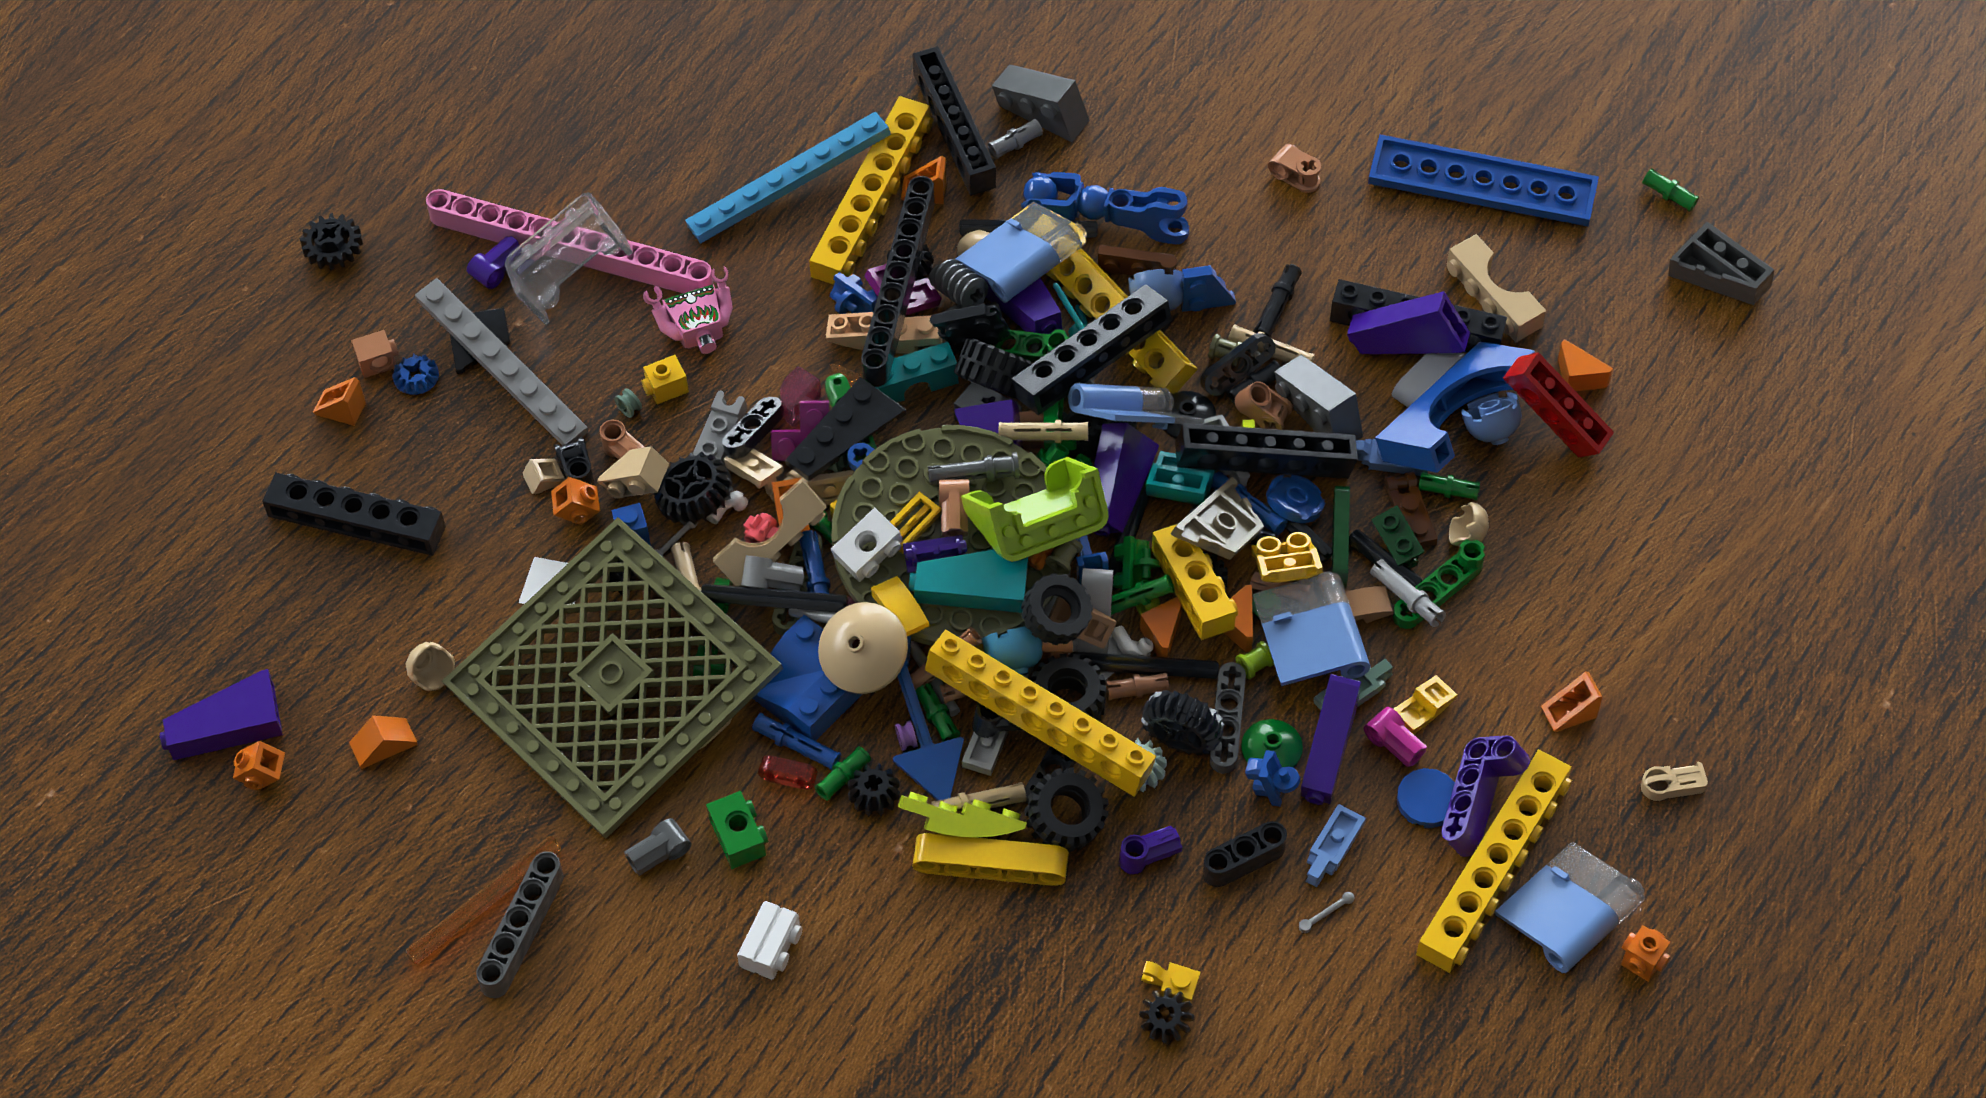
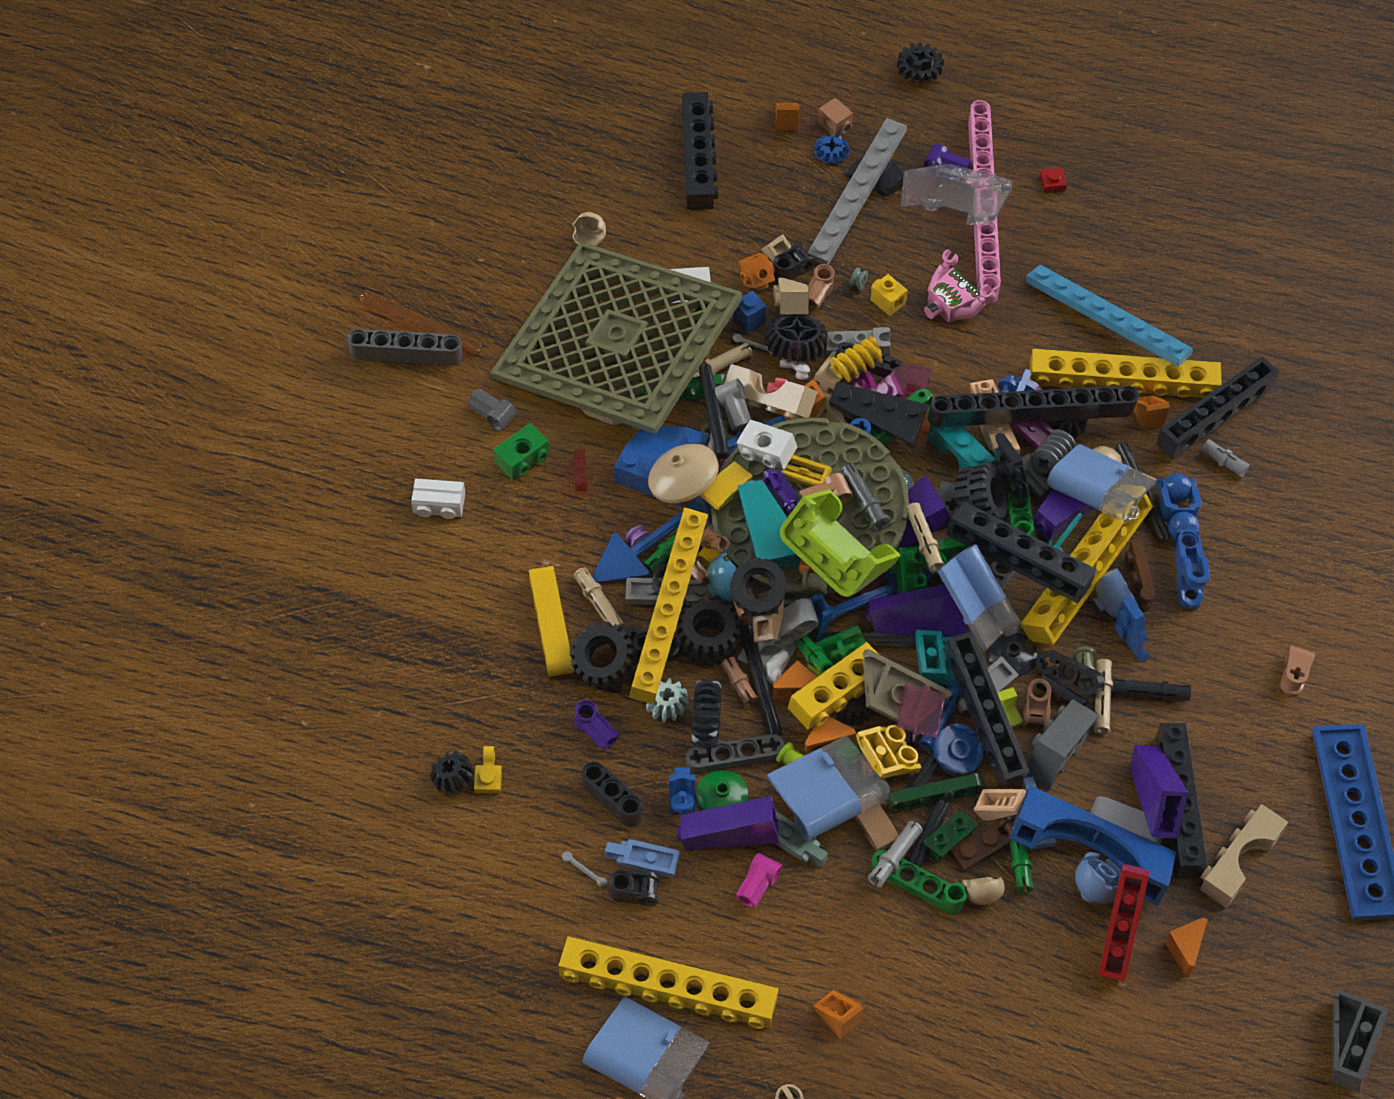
camera: 70 degrees right, 0 degrees up
(225, 719) = (510, 135): dark purple slope -> none
(258, 765) = (484, 164): orange brick -> none
(381, 739) = (526, 226): orange slope -> none
(566, 169) = (1053, 180): none -> red plate
(762, 429) = (857, 359): none -> yellow piece
(786, 736) = (607, 473): blue pin -> none
(842, 773) = (592, 505): green pin -> none
(864, 782) = (583, 528): black gear -> none
(974, 821) = (571, 593): neon yellow slope -> none
(1043, 97) = (1269, 464): dark grey wedge -> none
(1249, 511) = (920, 710): none -> clear pink piece
(1361, 486) = (993, 803): none -> light nougat slope
(1370, 859) = (636, 887): none -> black piece
(1425, 704) = (798, 897): yellow slope -> none
(1425, 797) = (712, 920): blue tile -> none
(1475, 787) = (724, 950): dark purple beam -> none

